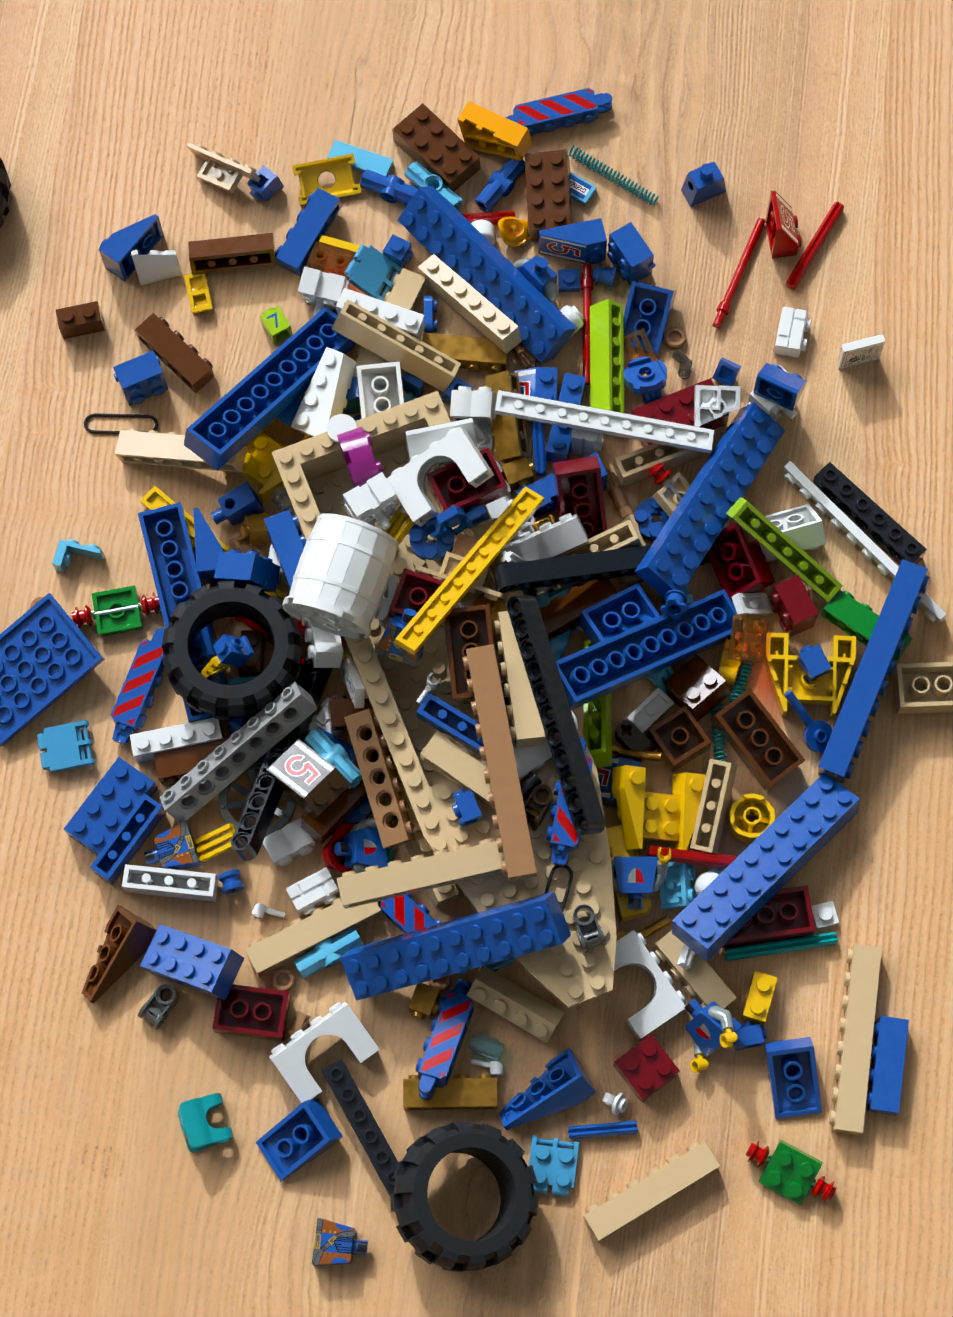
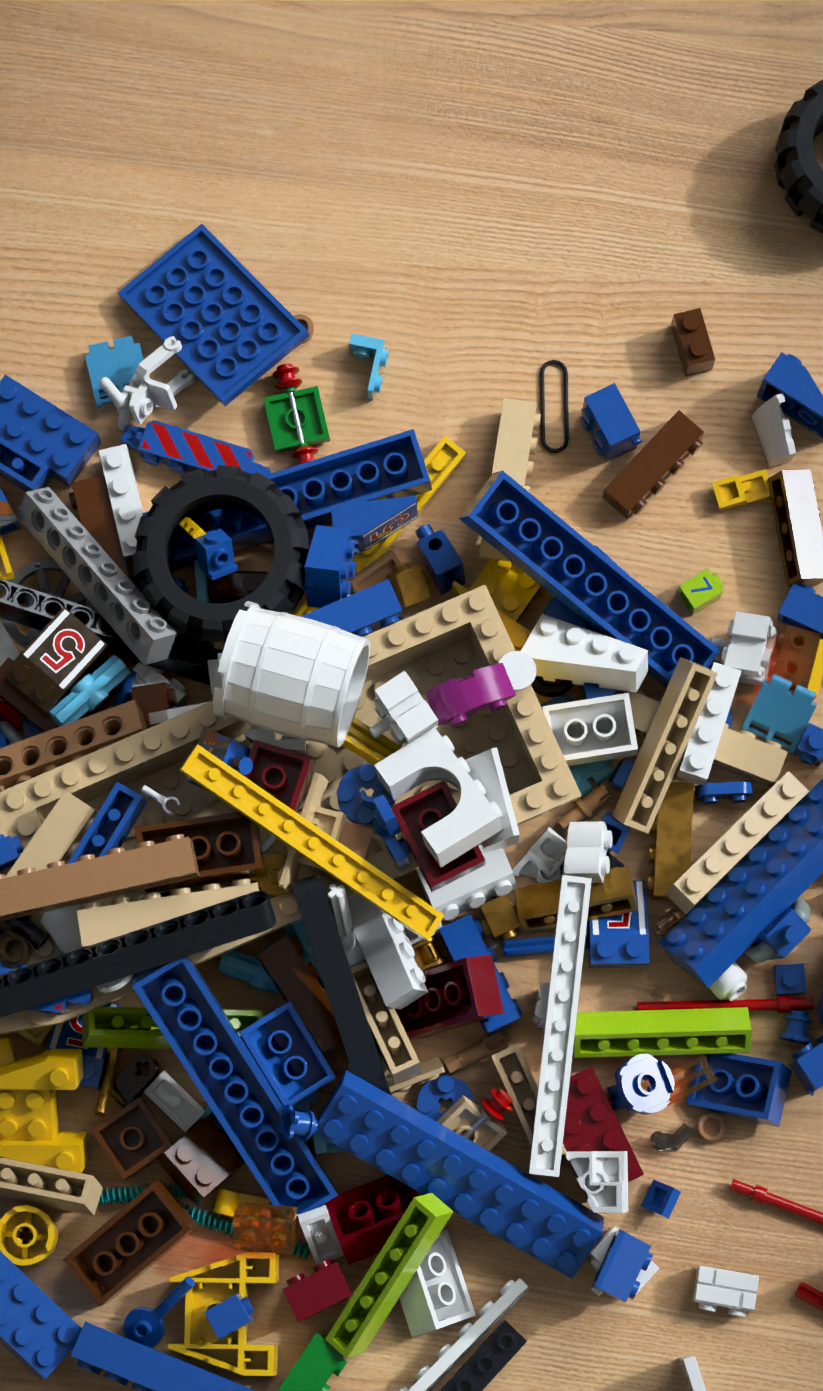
camera: 85 degrees right, 5 degrees up
(86, 719) = (143, 391): none -> white piece
(560, 436) = (595, 983): blue brick -> none

